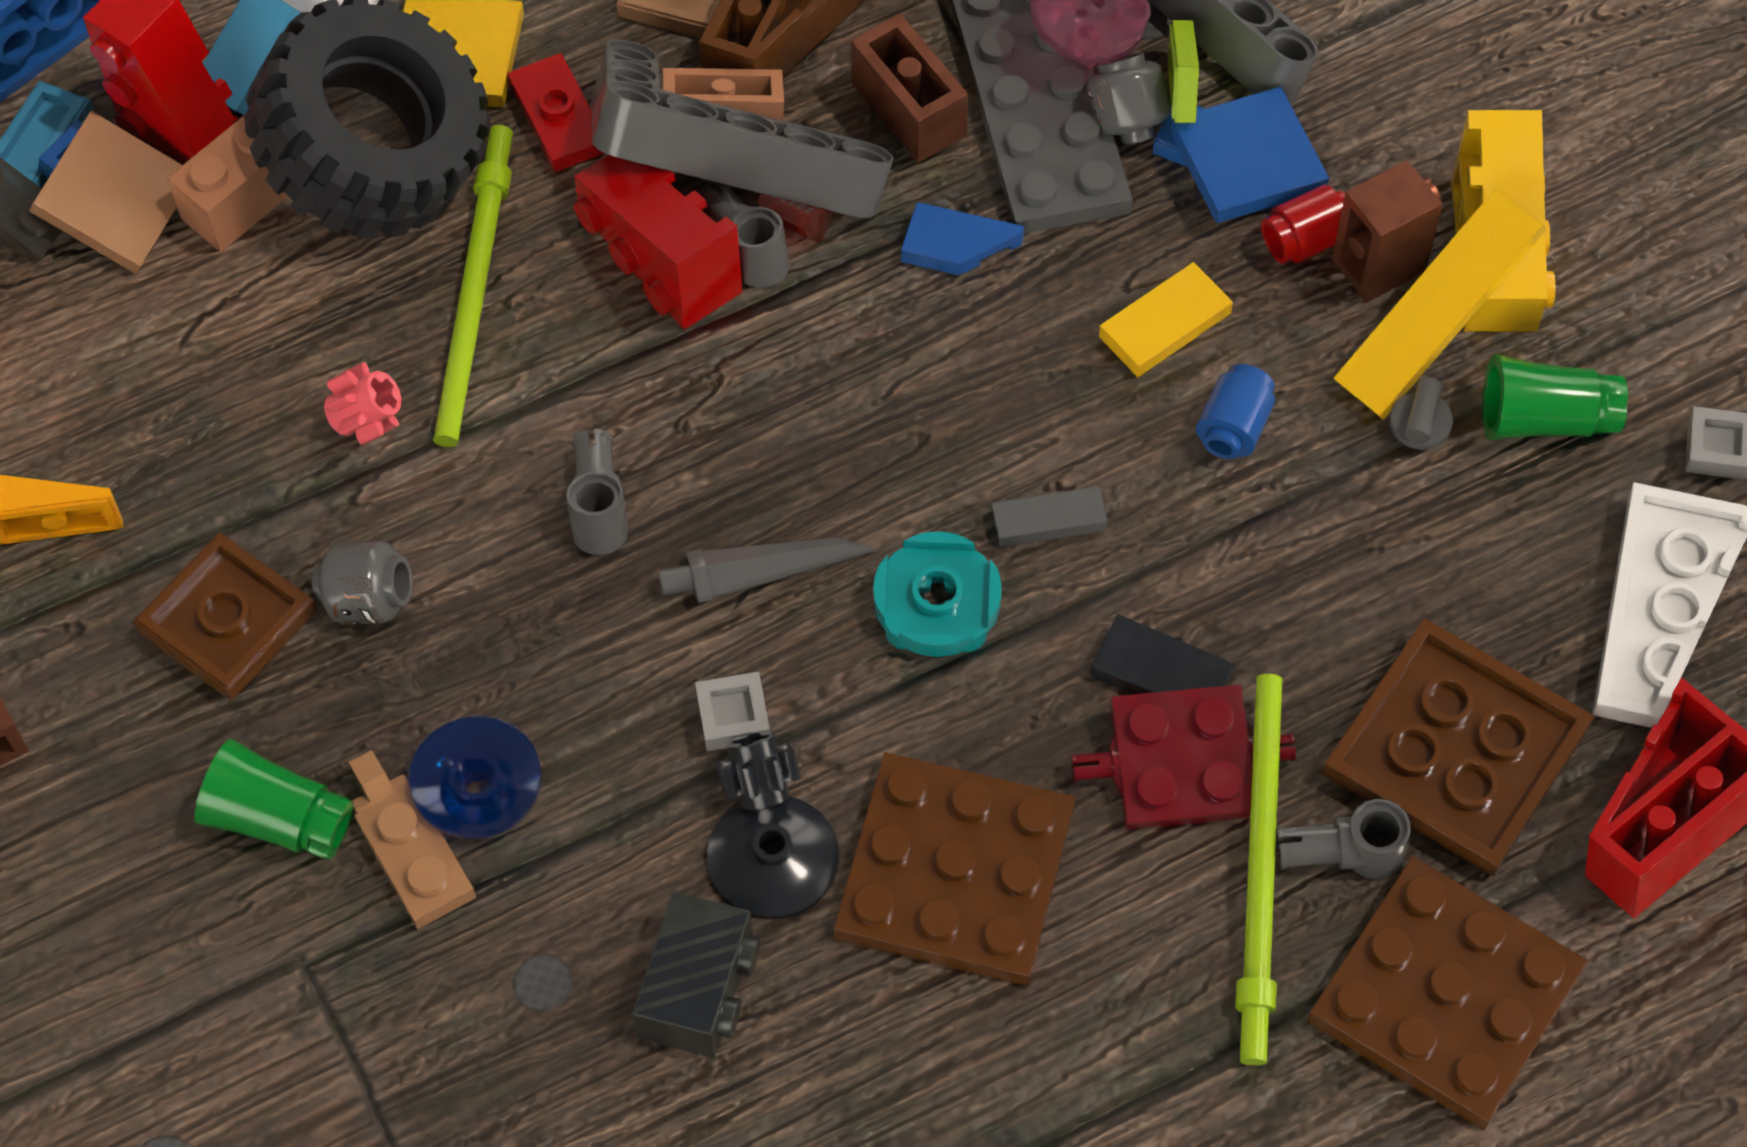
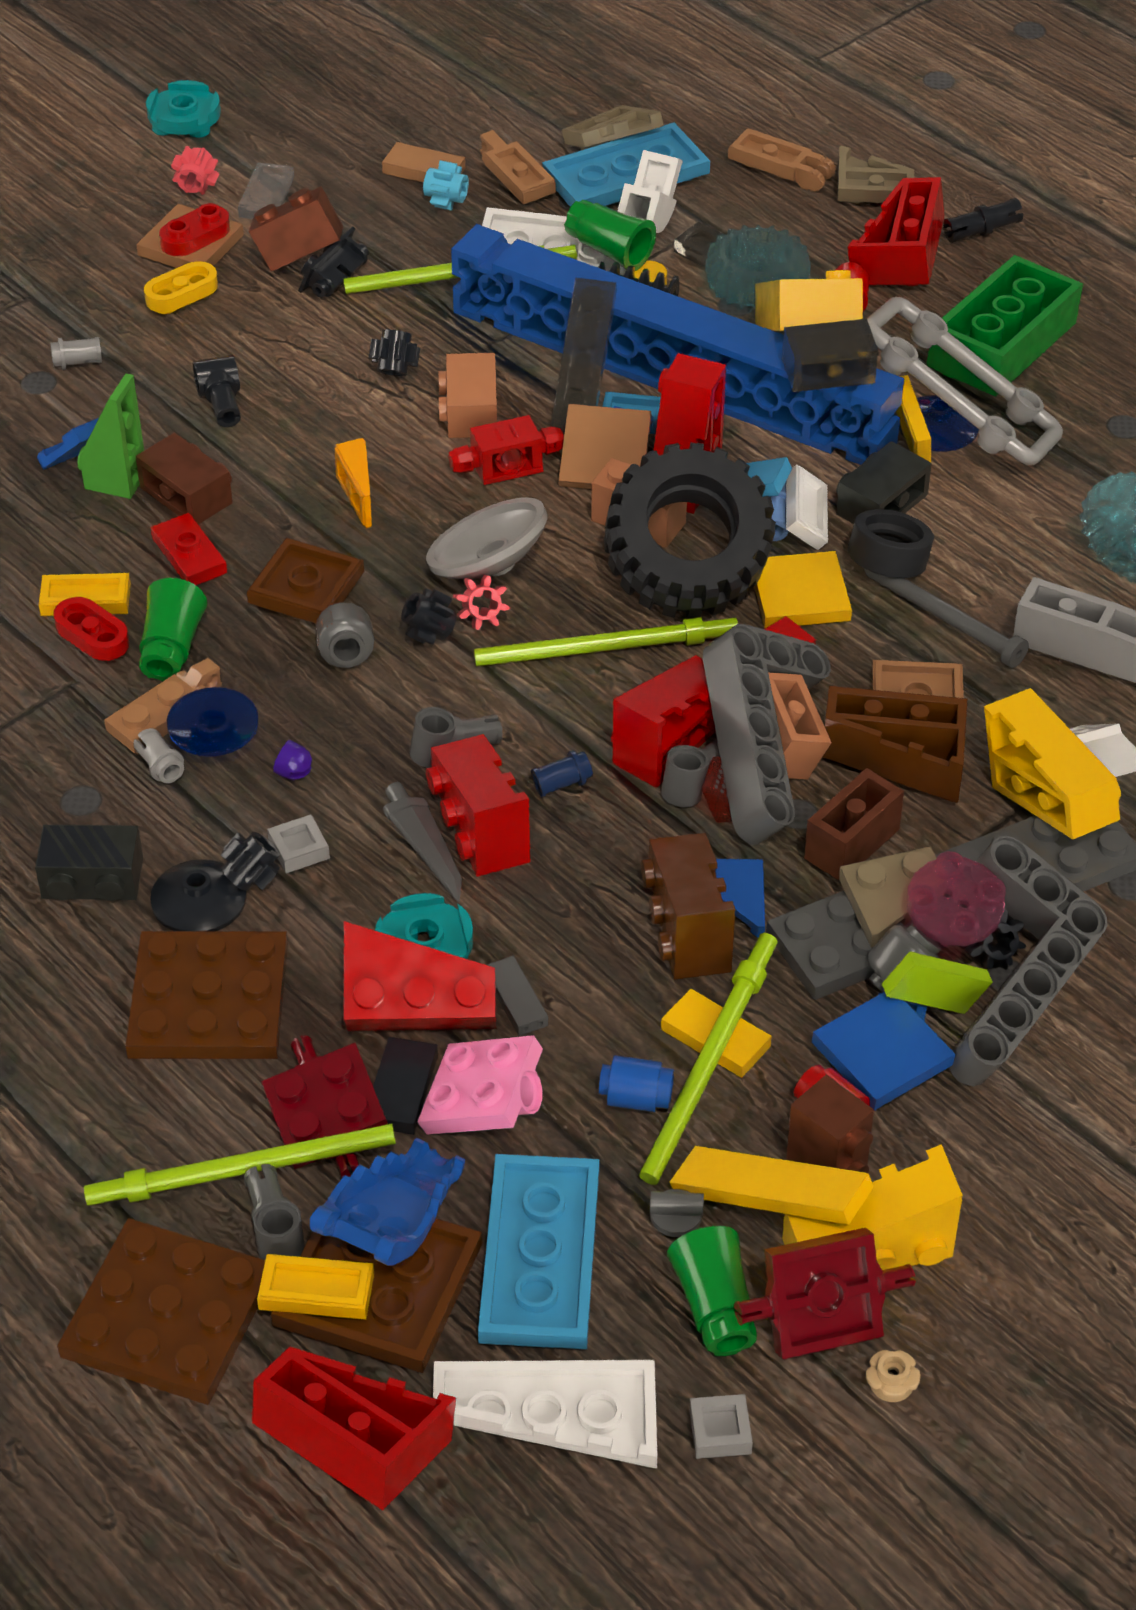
camera: 75 degrees right, 15 degrees down
(59, 312) = (506, 449): none -> red piece
(88, 761) = (188, 549): none -> red plate
(127, 917) = (107, 590): none -> yellow tile
(216, 911) = (91, 628): none -> red plate
(227, 361) = (488, 540): none -> light grey dish
(358, 483) = (428, 616): none -> black gear
(509, 860) = (163, 762): none -> light grey pin
(574, 693) = (293, 761): none -> dark purple hinge
(700, 368) = (562, 773): none -> dark blue pin
(739, 478) = (480, 804): none -> red wedge
(977, 288) = (689, 906): none -> reddish brown wedge
(1027, 80) = (880, 888): none -> dark tan wing
(1047, 615) = (412, 986): none -> red wedge
(1123, 256) = (747, 981): none -> lime bar
(1205, 574) = (483, 1086): none -> bright pink plate
(1389, 694) = (390, 1203): none -> blue animal
(1451, 567) = (539, 1252): none -> dark azure plate
(1477, 806) = (316, 1286): none -> yellow tile
(1594, 290) = (824, 1293): none -> dark red plate
(1672, 282) = (888, 1386): none -> tan plate

